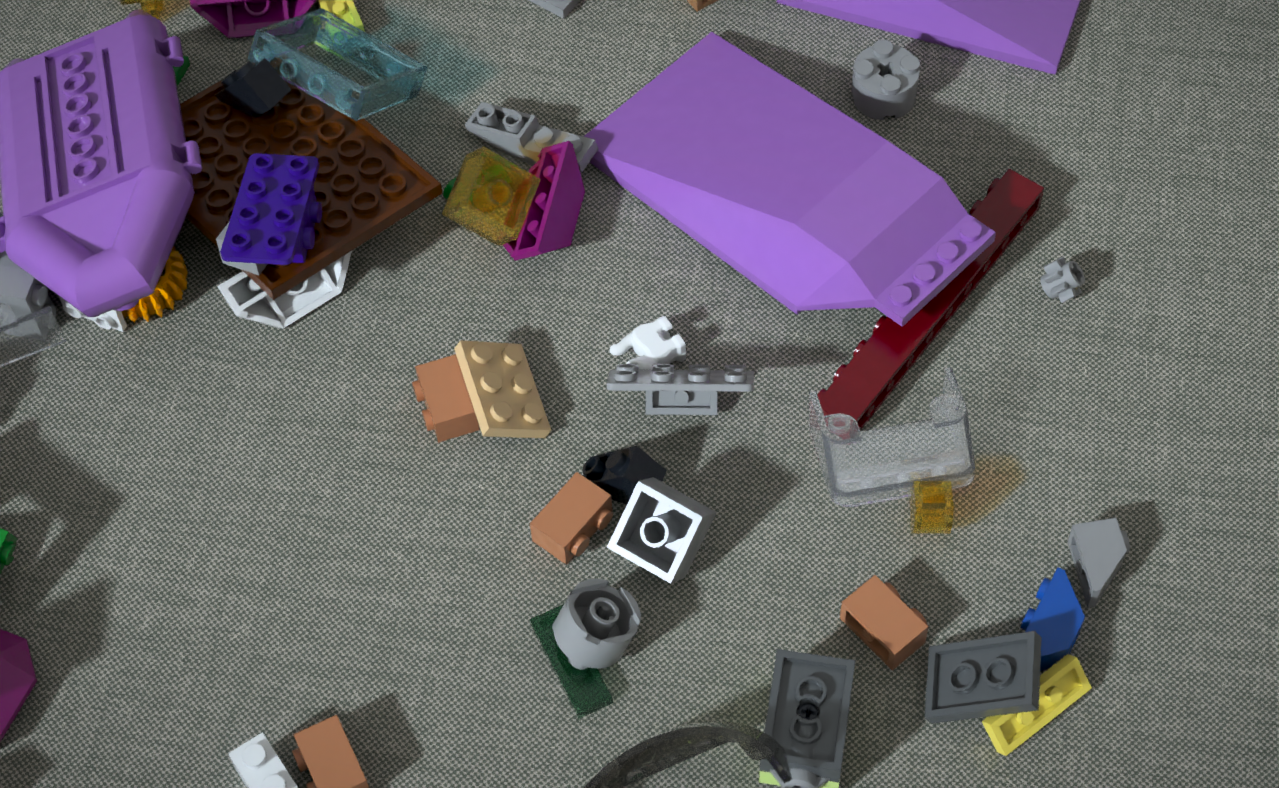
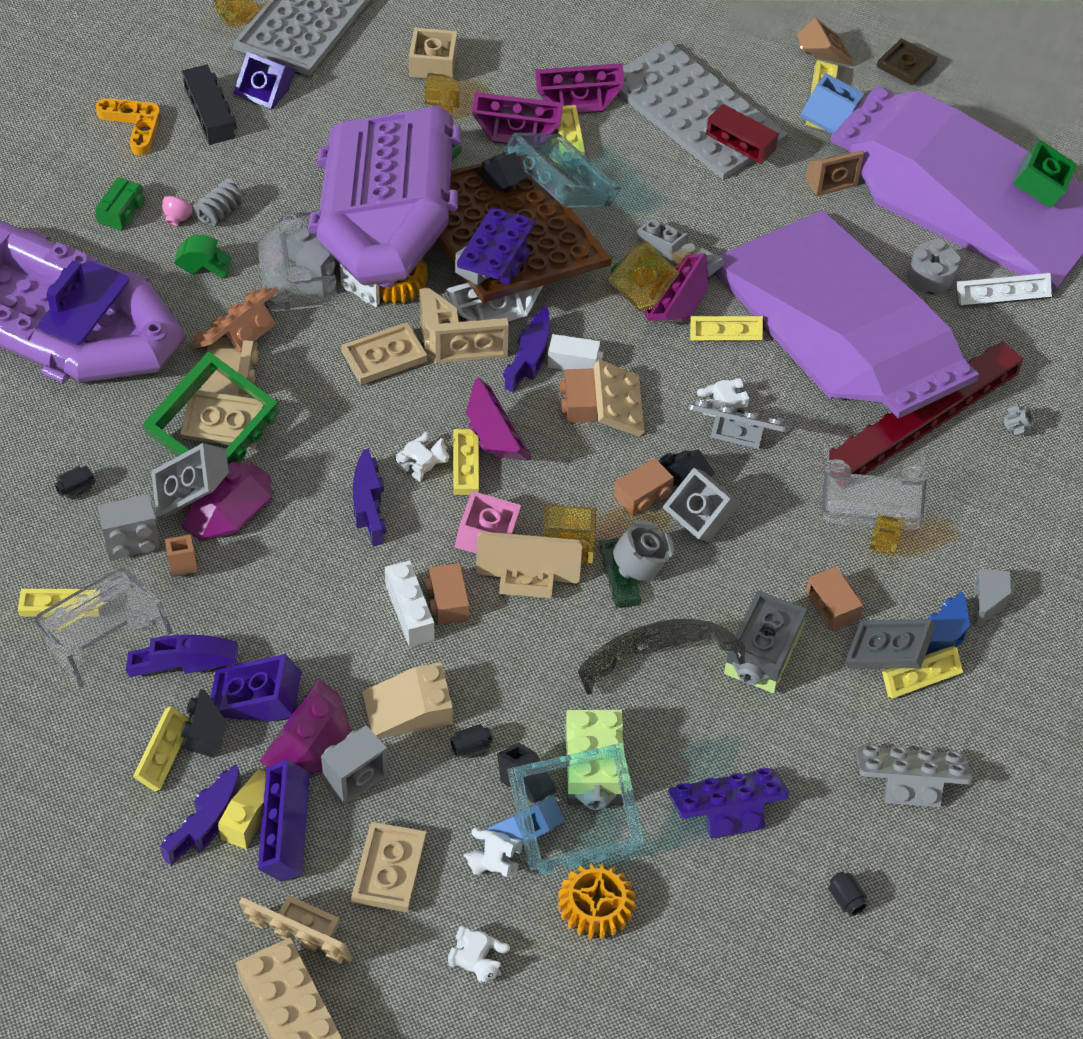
camera: 10 degrees right, 5 degrees down
(150, 403) = (384, 353): none -> tan plate
(175, 637) = (367, 496): none -> dark purple slope
(241, 555) = (420, 457): none -> white animal
(253, 359) = (456, 339): none -> tan bracket
(308, 545) = (465, 462): none -> light yellow plate
(333, 480) = (493, 425): none -> magenta wedge
(362, 347) = (531, 353): none -> dark purple slope
(363, 642) = (485, 515): none -> bright pink brick
(422, 335) = (573, 353): none -> white brick
(437, 688) = (528, 562): none -> tan bracket
(483, 625) = (572, 523): none -> clear yellow brick
(625, 242) = (726, 327): none -> light yellow plate
(987, 88) = (1004, 288): none -> white plate

